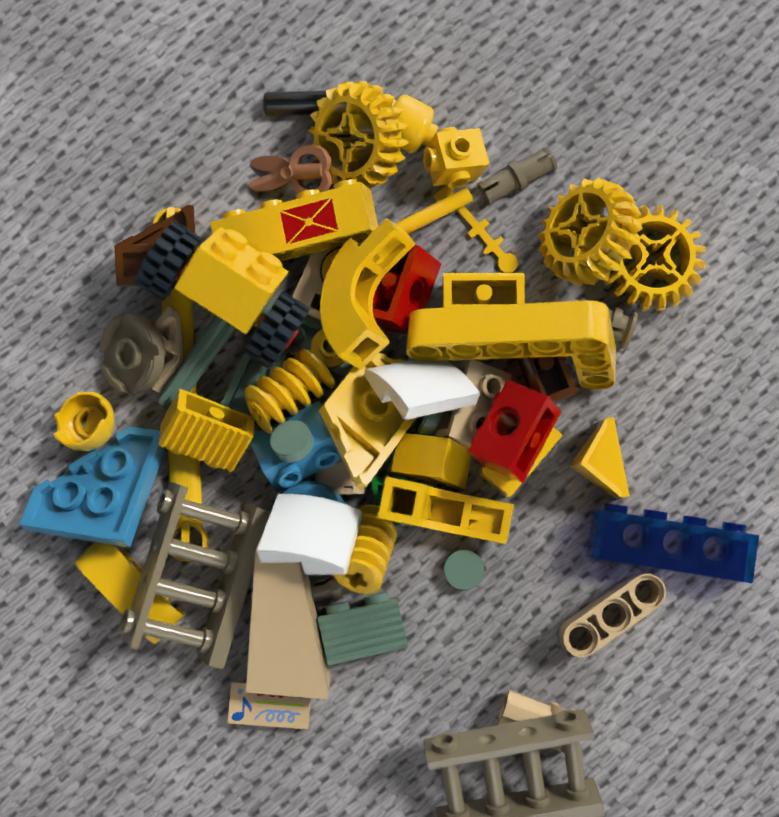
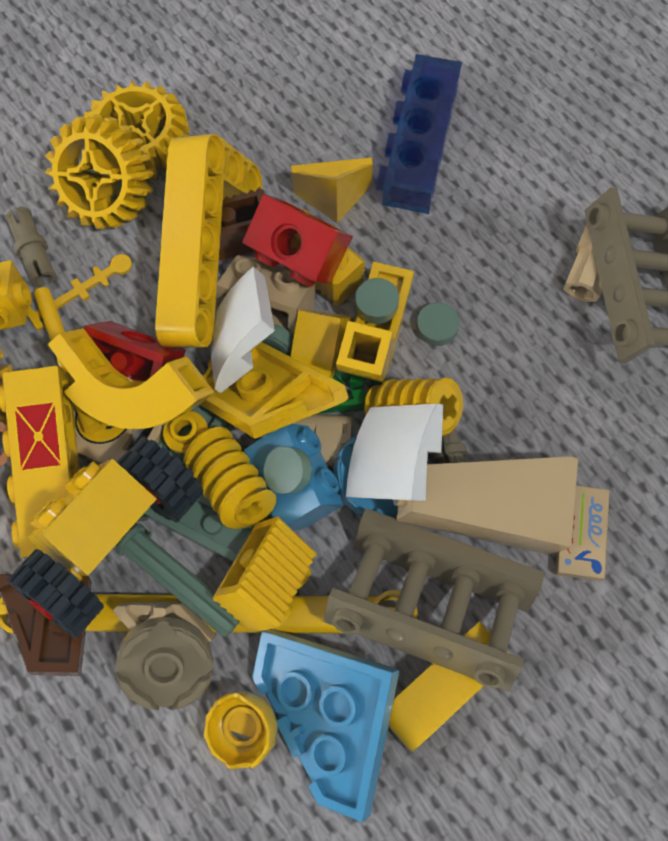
camera: 80 degrees left, 15 degrees down
(361, 629) = (499, 419): sand green brick -> none
(469, 510) = (377, 300): none -> sand green tile
(482, 289) = (141, 278): yellow brick -> none
(630, 613) = (485, 171): tan beam -> none

